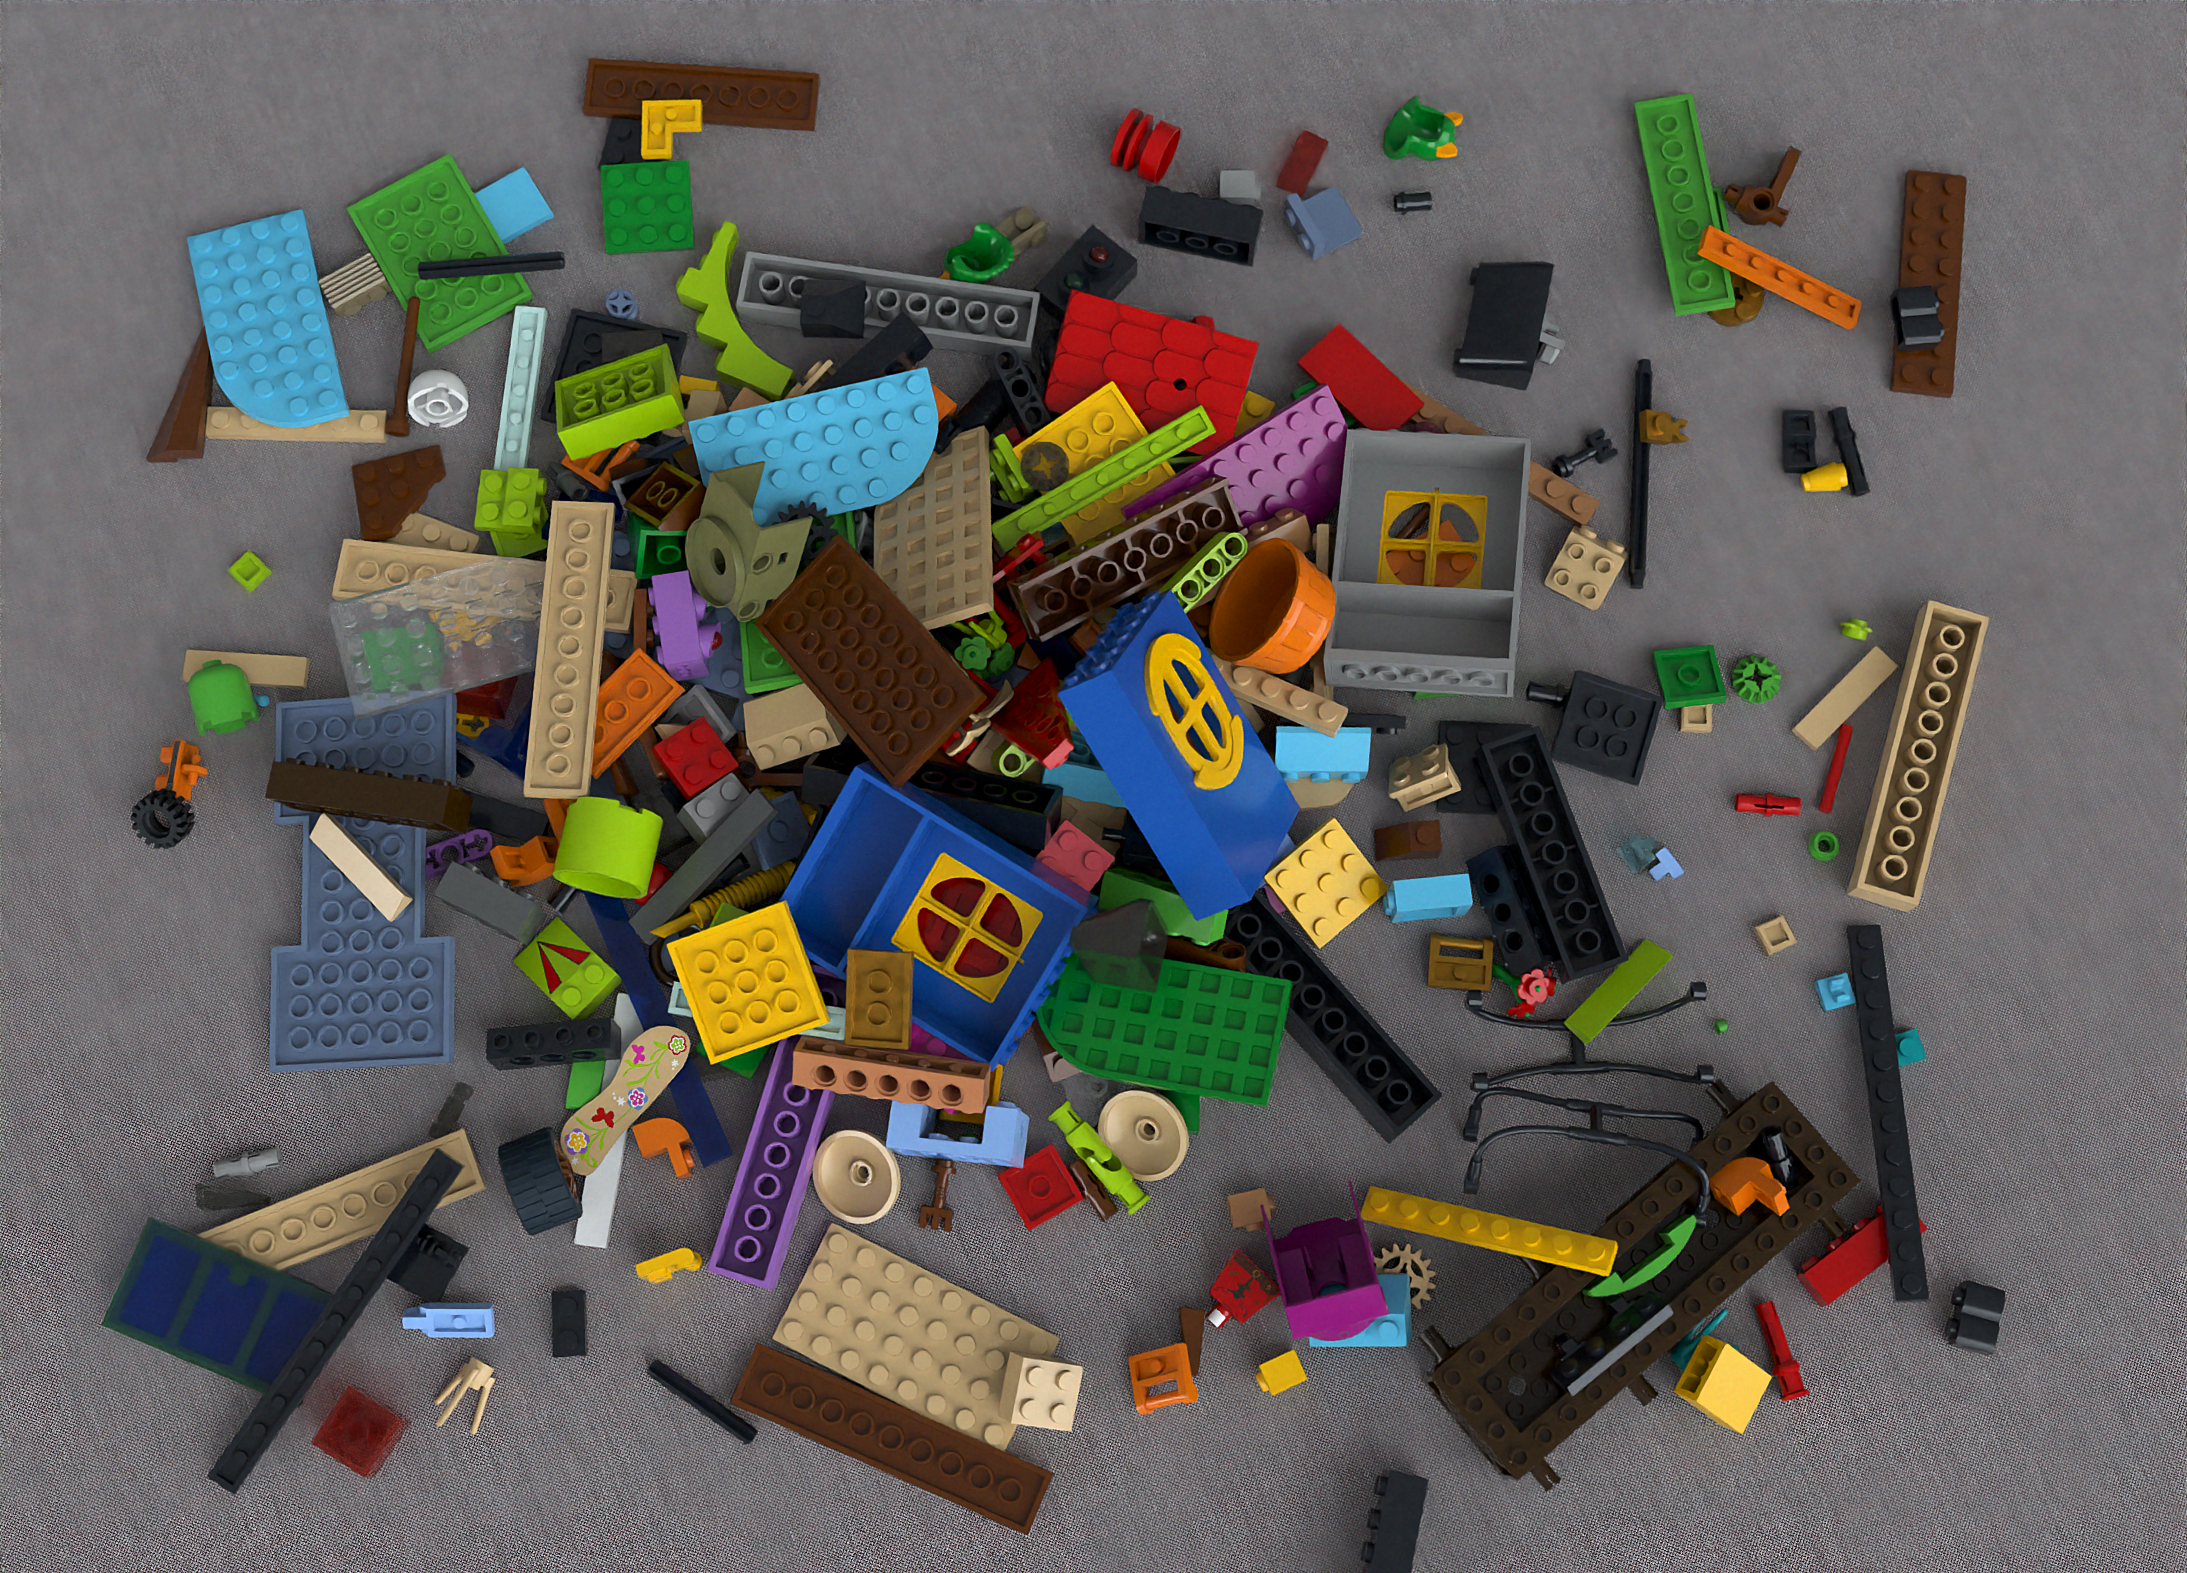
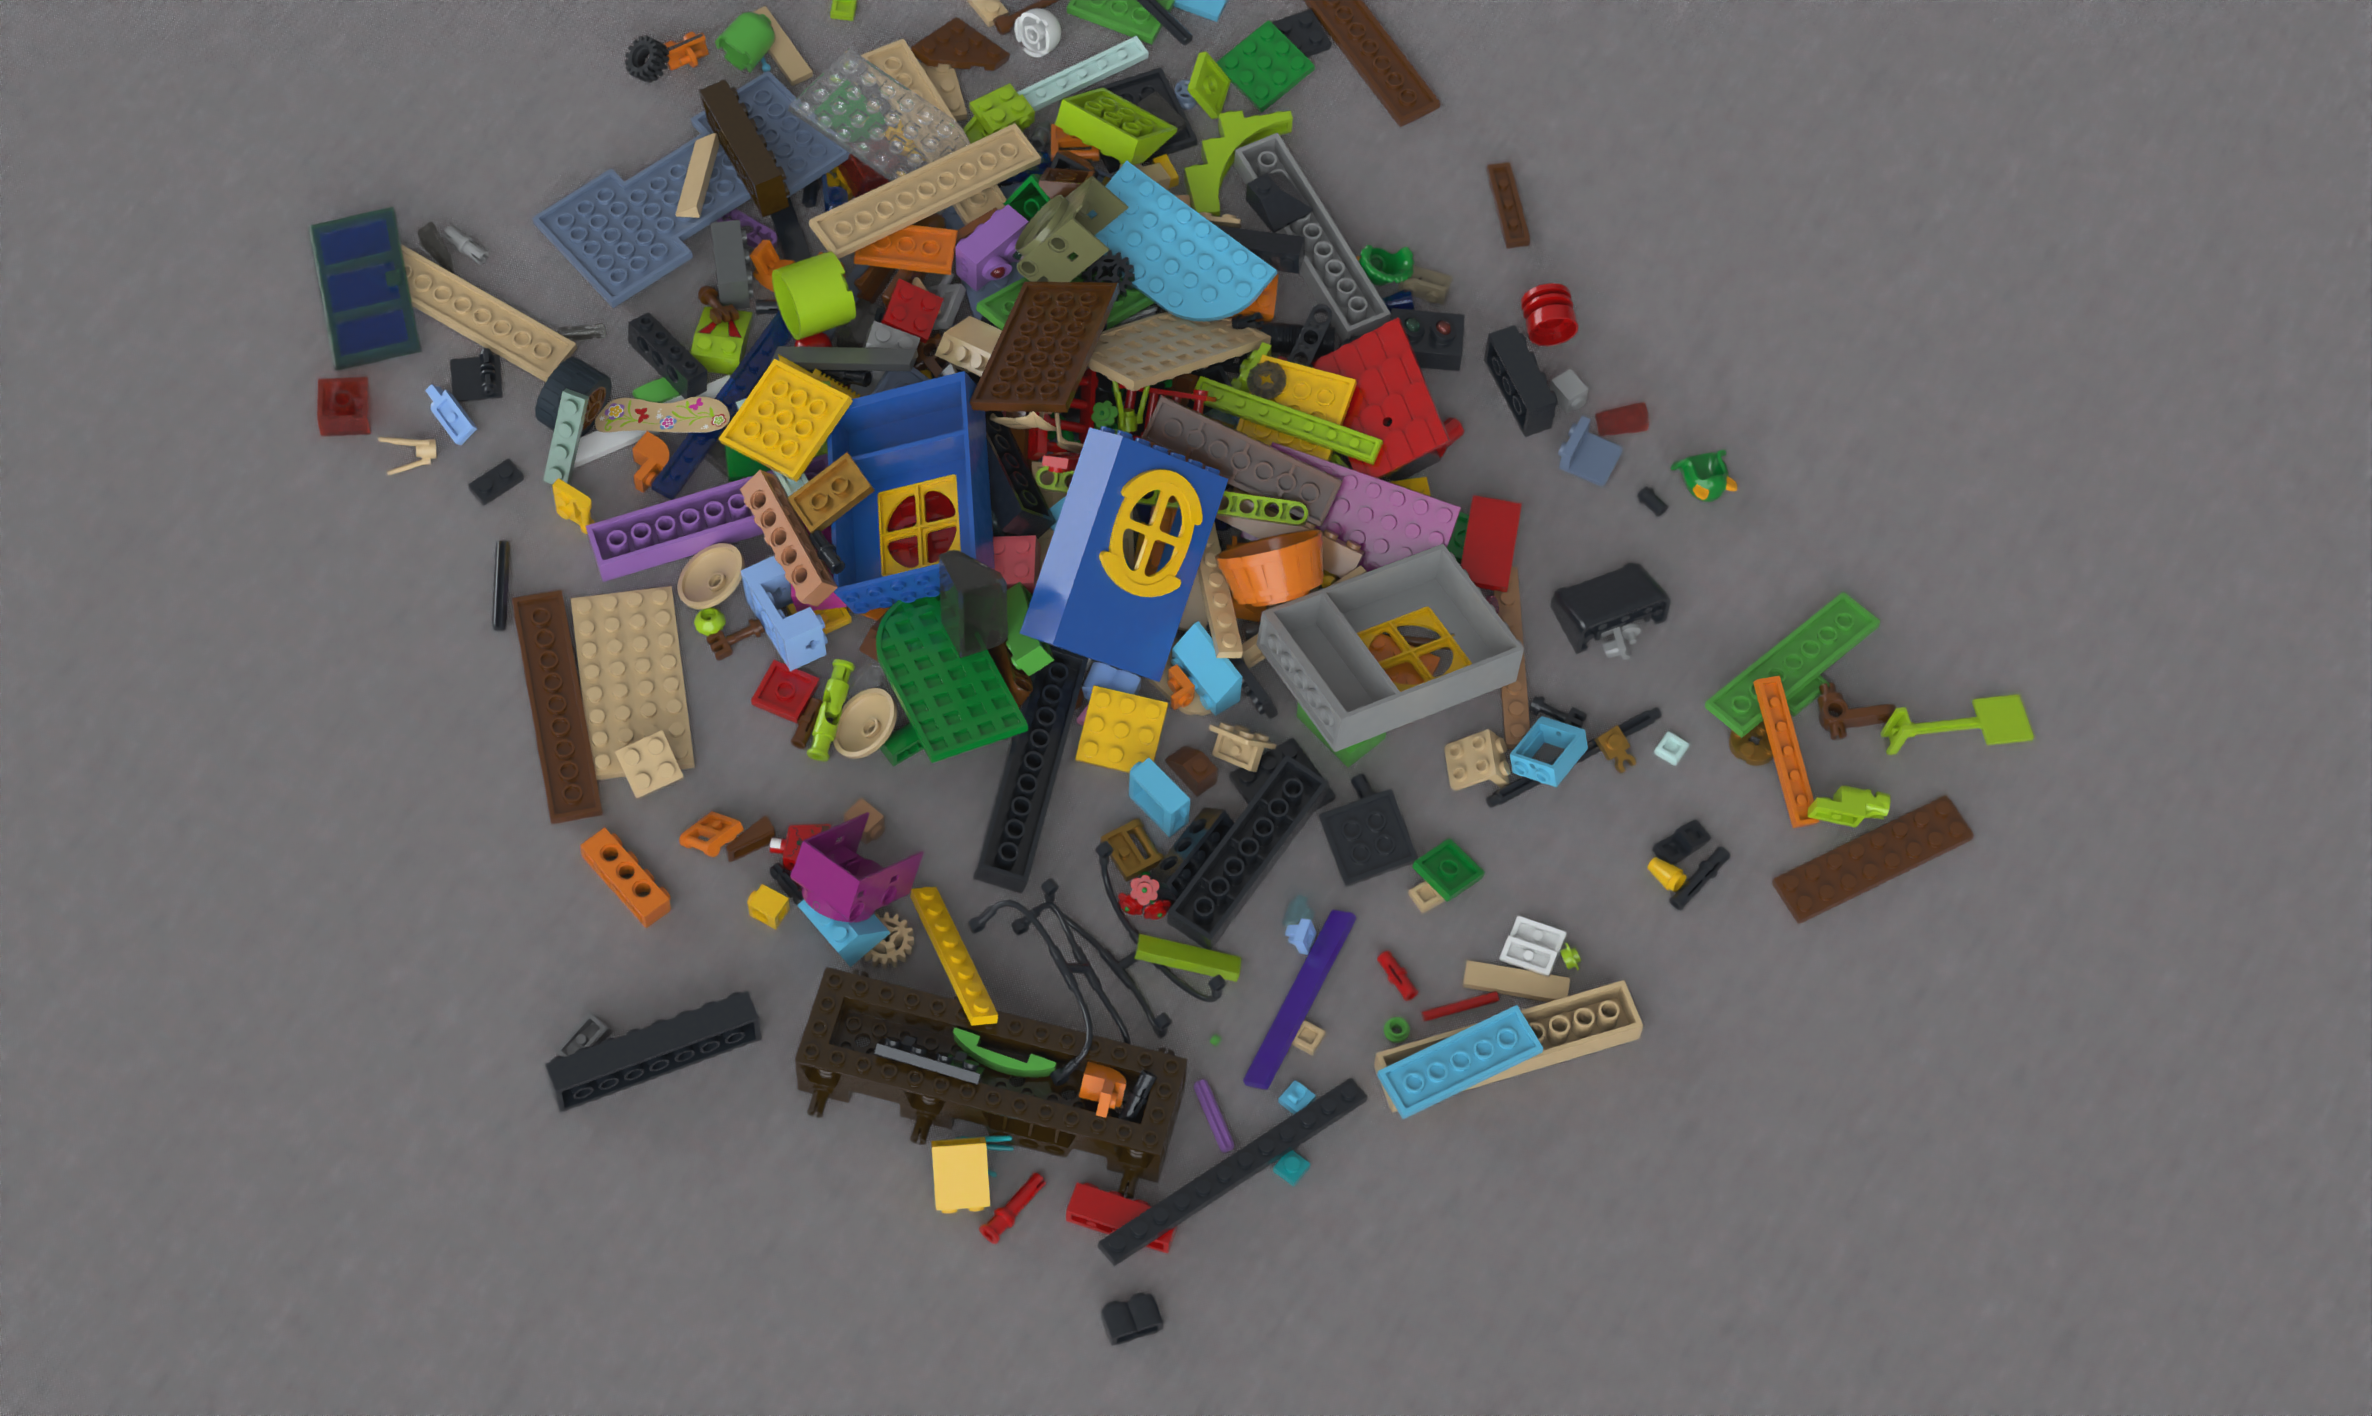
camera: 50 degrees right, 15 degrees down
(335, 1321) = (404, 347): black plate -> none
(540, 952) = (719, 313): none -> reddish brown hinge
(587, 1222) = (566, 436): none -> sand green plate
(633, 277) = (1209, 85): none -> lime plate
(662, 119) = (1329, 34): yellow plate -> none
(911, 1214) = (709, 621): none -> lime plate
(943, 1047) = (827, 552): none -> black axle
(983, 95) = (1508, 205): none -> reddish brown plate
(1021, 273) = (1399, 300): none -> clear blue cone
(1199, 1503) = (645, 909): none -> orange brick
(1263, 1333) = (791, 888): none -> black axle
(1313, 788) = (1181, 687): none -> orange bracket
(1614, 471) = (1547, 731): none -> medium azure window
(1690, 377) = (1671, 748): none -> light aqua tile
(1733, 915) = (1299, 999): none -> dark purple tile
(1748, 689) = (1483, 928): bright green gear -> none
(1804, 1085) = (1214, 1115): none -> medium lavender axle
(1820, 656) = (1533, 946): none -> white slope
(1861, 66) = (1998, 717): none -> lime piece
(1870, 260) = (1850, 806): none -> lime plate
(1916, 318) = (1830, 855): black brick -> none
(1925, 816) = (1459, 1061): none -> medium azure plate

